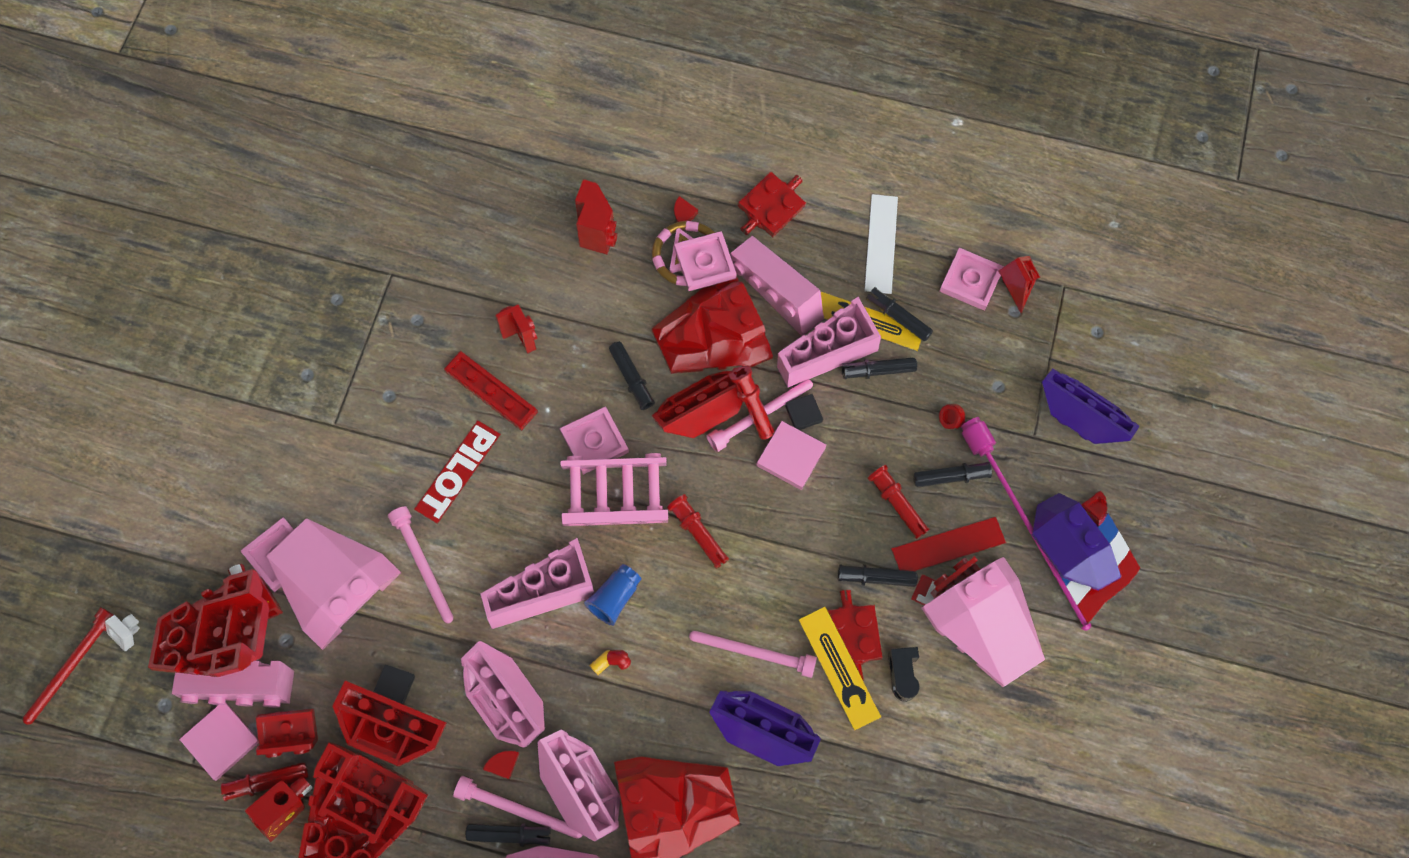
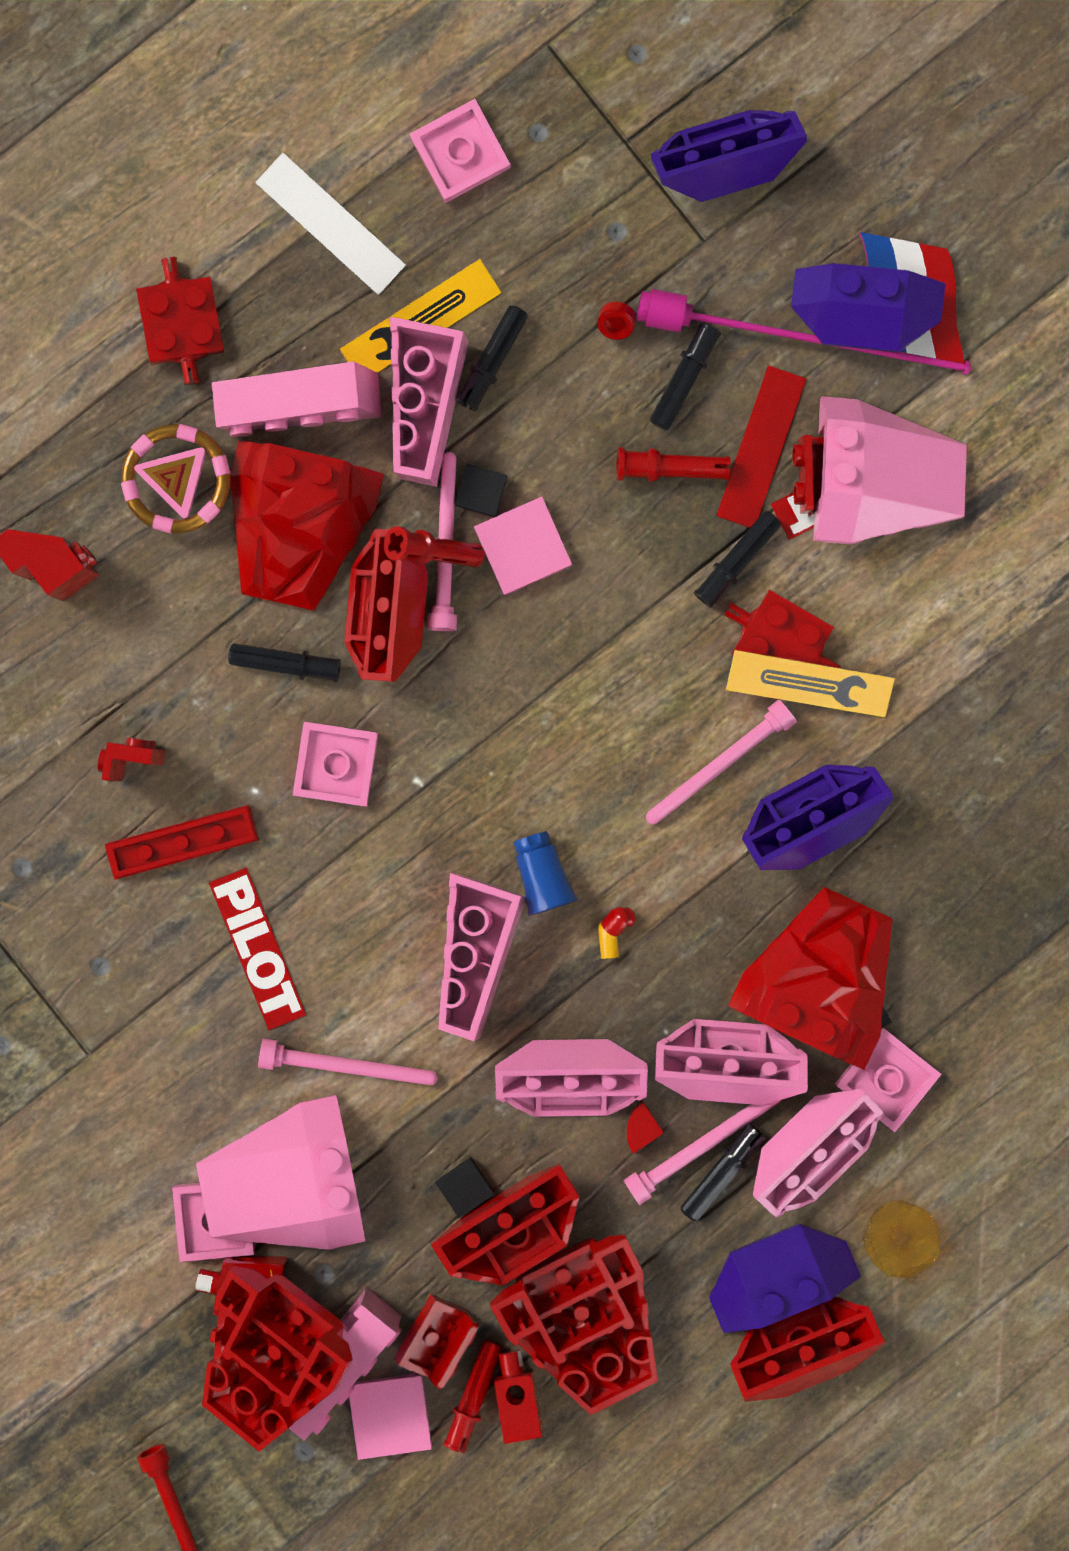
camera: 50 degrees left, 20 degrees up
(122, 631) = (184, 1450): white tile -> none
(602, 513) = (438, 821): bright pink fence -> none
(684, 210) = (111, 438): red tile -> none
(691, 521) = (518, 724): red pin -> none
(705, 261) = (205, 467): bright pink tile -> none
(900, 314) = (442, 278): black axle -> none
(904, 683) = (865, 617): black leg -> none
(1019, 279) = (503, 92): red slope -> none
(1096, 508) = (845, 241): red tile -> none

